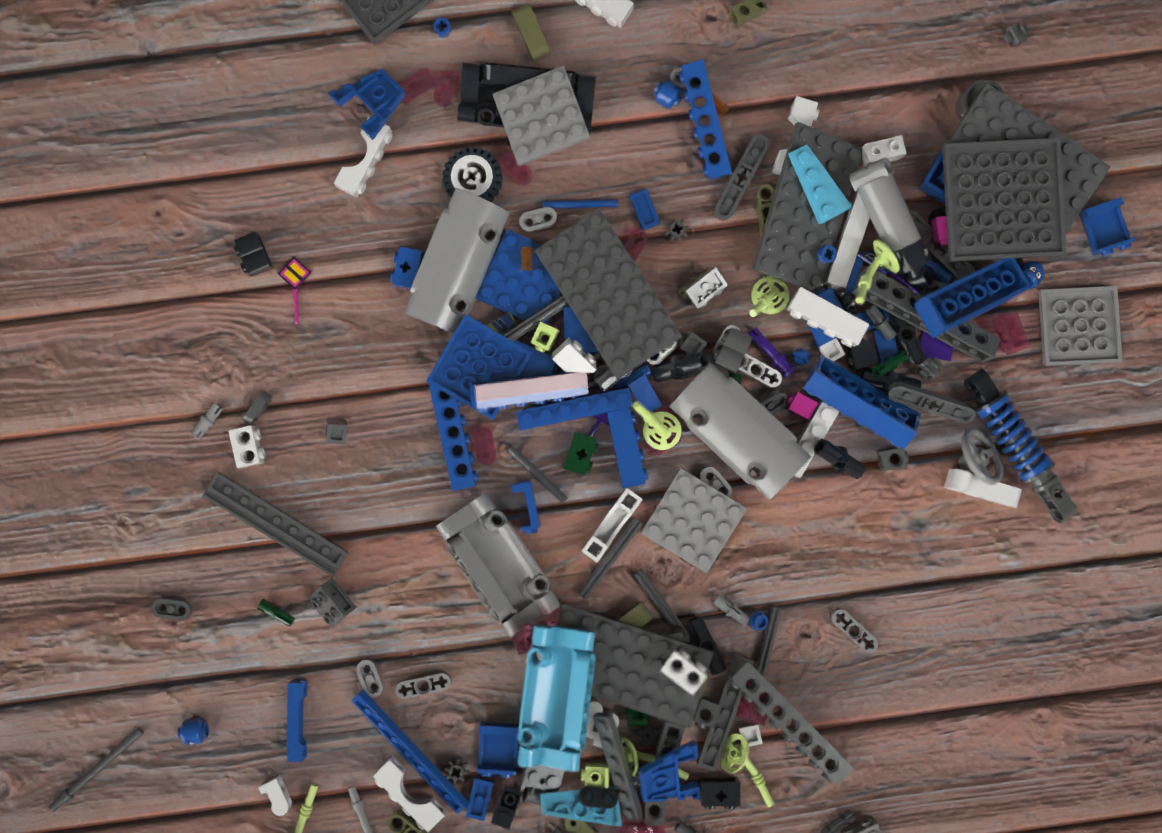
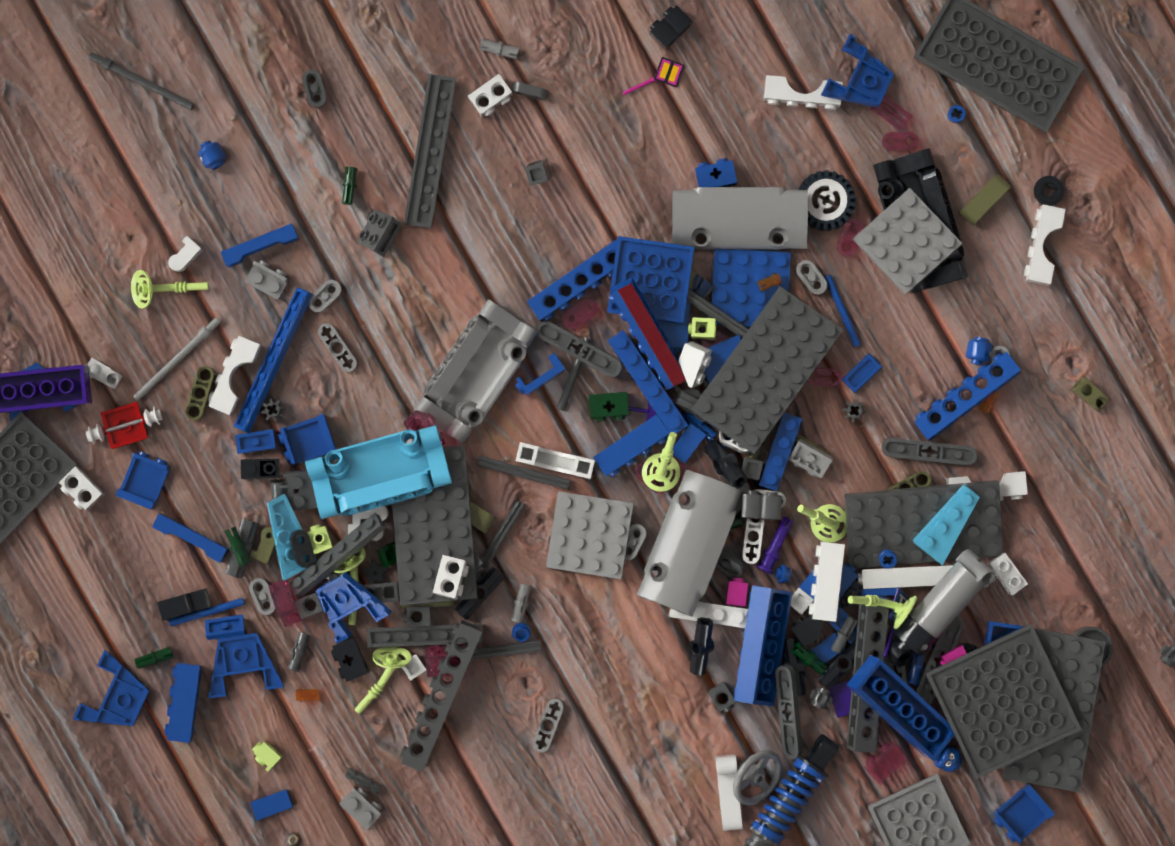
camera: 70 degrees right, 0 degrees up
(333, 726) = (267, 280): none -> light grey bracket
(531, 448) = (562, 340): none -> dark grey piece
(688, 313) = (779, 452): none -> blue brick

